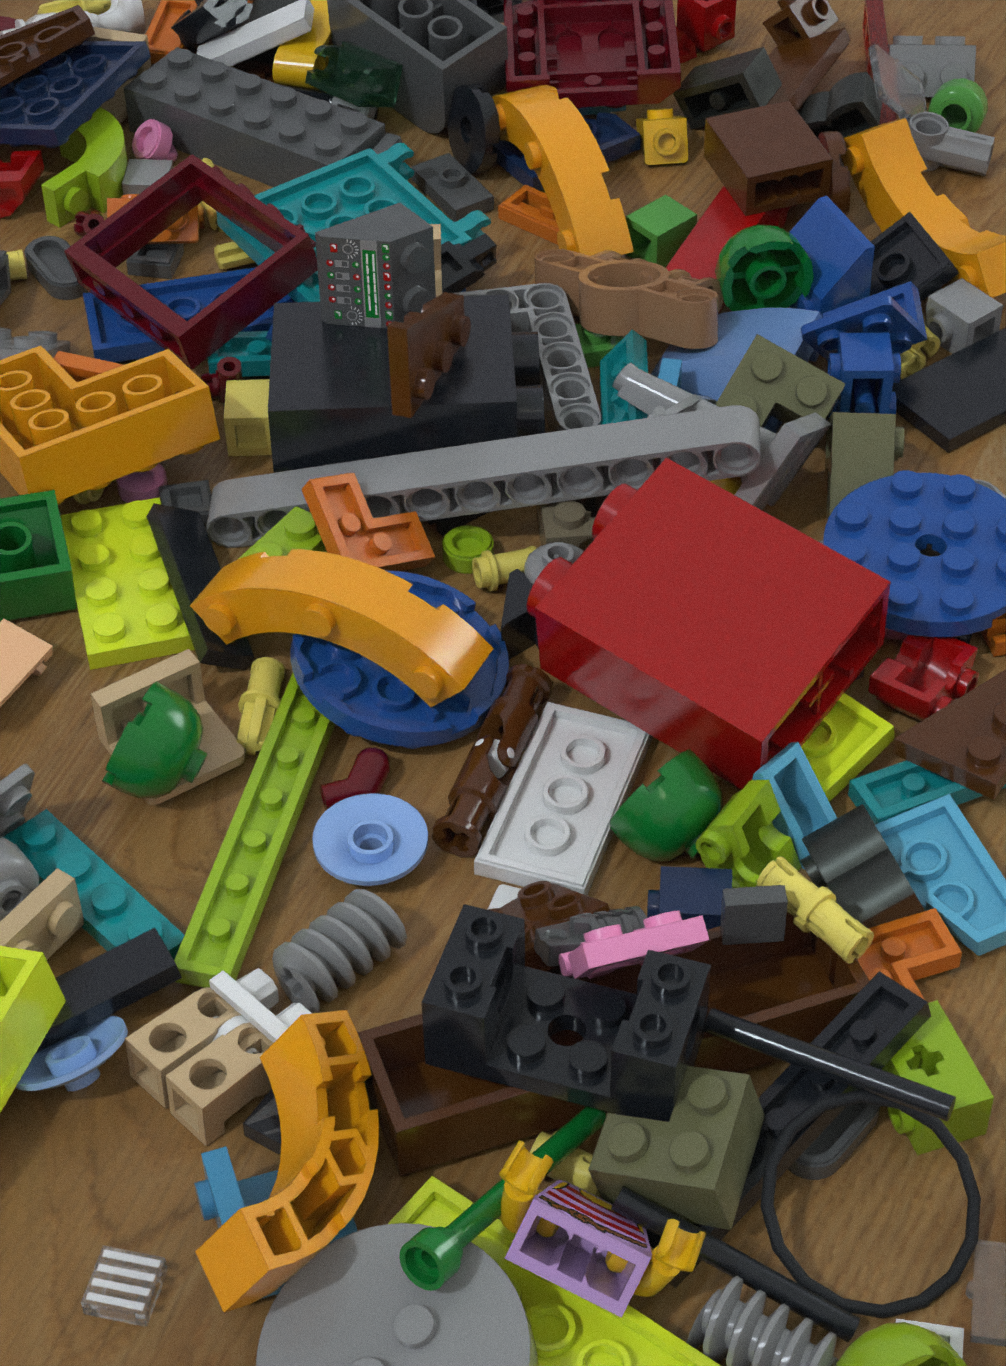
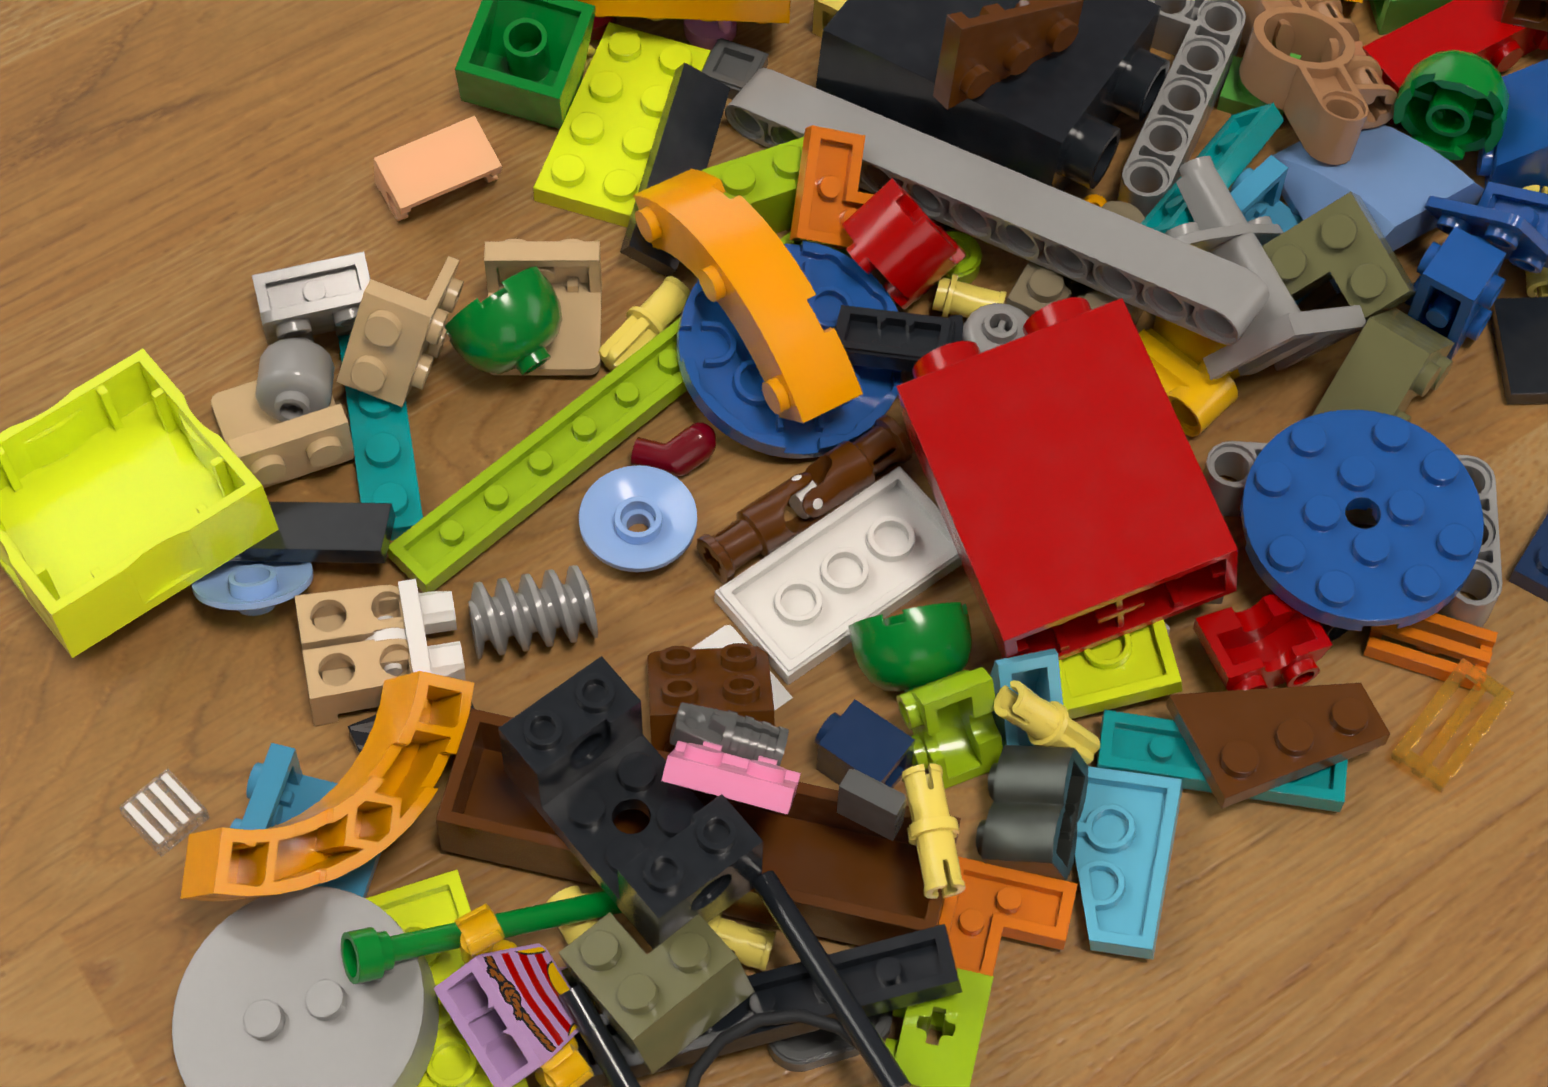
camera: 30 degrees right, 15 degrees up
(68, 795) = (398, 337): none -> tan bracket
(434, 538) = (901, 243): none -> red cylinder
(490, 601) = (890, 337): none -> black plate
(818, 800) = (1044, 721): none -> light yellow axle

